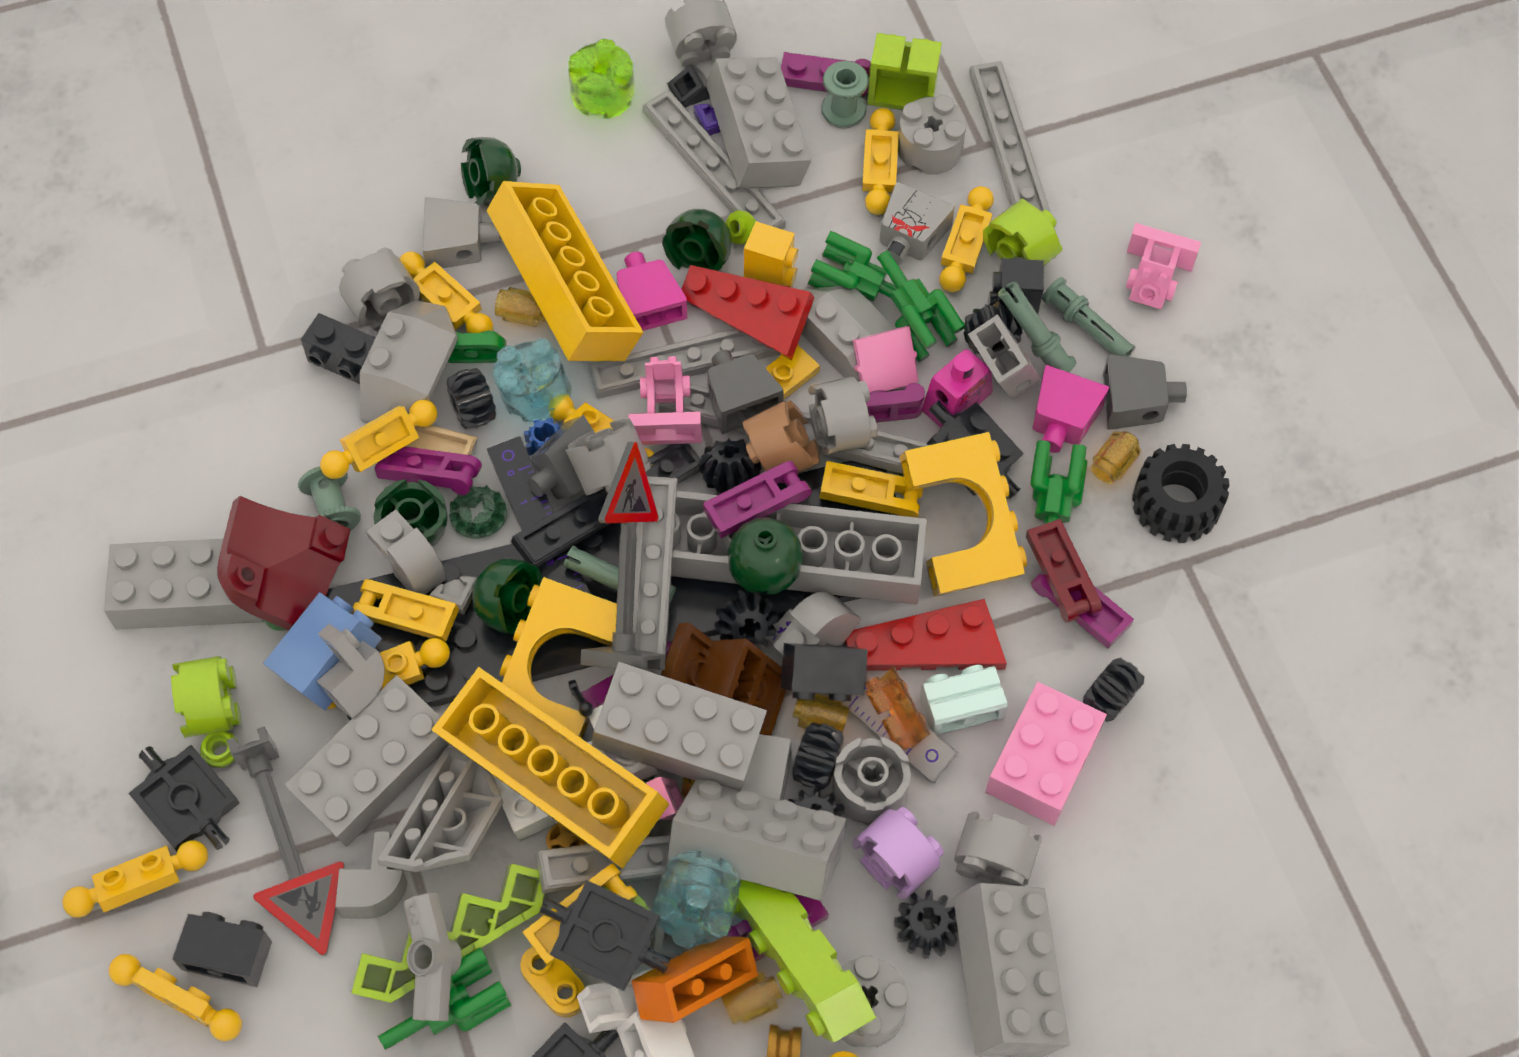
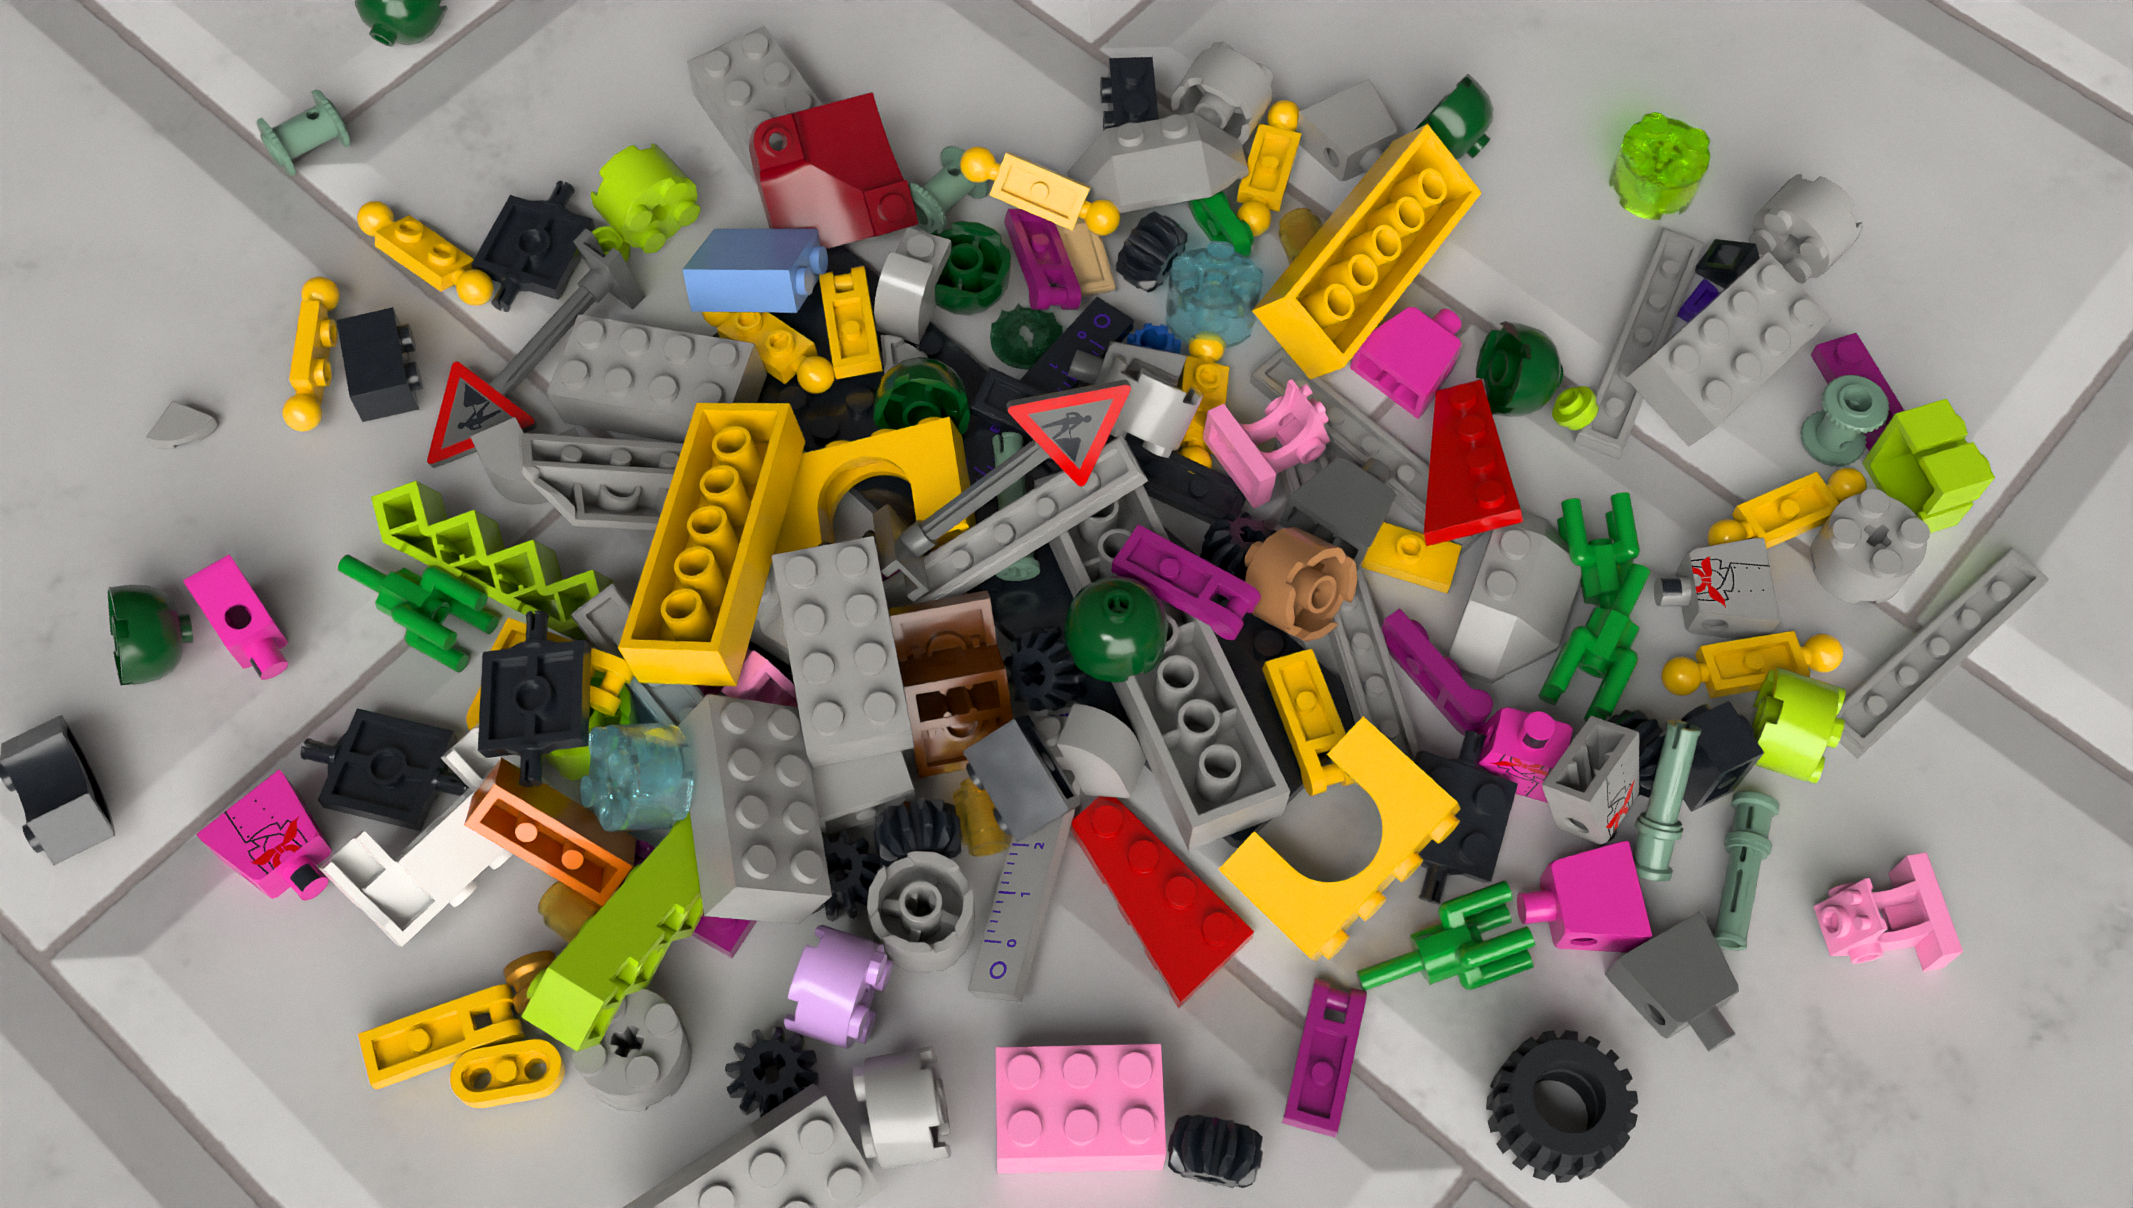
camera: 60 degrees right, 0 degrees up
(356, 676) = (729, 303): light grey brick -> none
(430, 957) = (435, 545): light grey piece -> none
(770, 255) = (1544, 452): yellow brick -> none
(842, 415) = (1374, 626): light grey brick -> none
(886, 359) = (1502, 651): bright pink piece -> none
(891, 693) = (1011, 909): clear orange hinge -> none
(963, 699) = (1097, 971): light aqua brick -> none
(1063, 570) = (1344, 1003): dark red plate -> none
(1115, 457) = (1564, 999): clear yellow brick -> none

